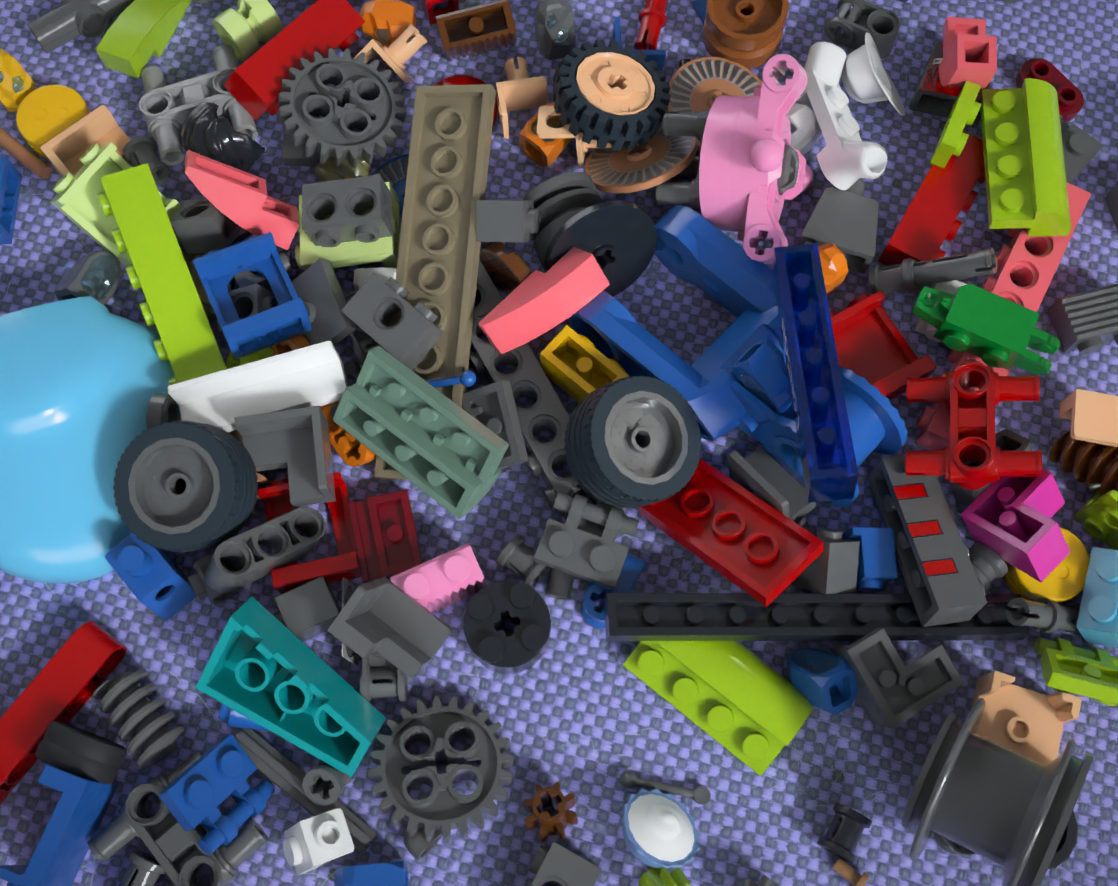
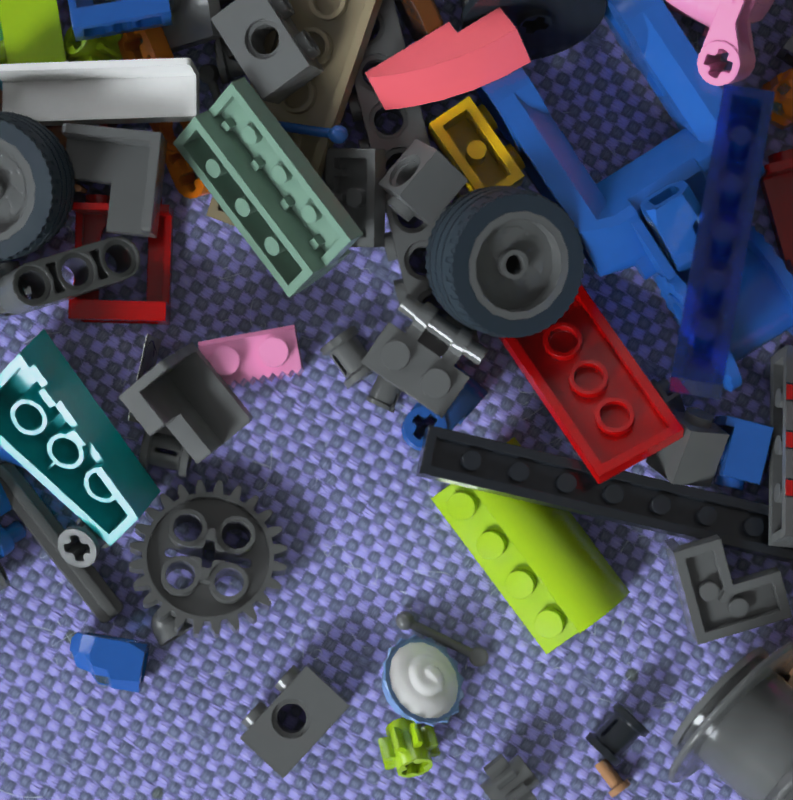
camera: 15 degrees right, 15 degrees up
(308, 609) = (101, 351): dark grey brick -> none
(317, 841) = (61, 601): white bracket -> none
(385, 535) = (204, 288): dark red plate -> none
(502, 602) = (294, 407): black brick -> none
(547, 397) = (422, 183): none -> dark grey brick
(558, 802) = (320, 621): reddish brown gear -> none
(770, 483) = (648, 335): dark grey panel -> none
(823, 679) = (642, 571): blue rock -> none

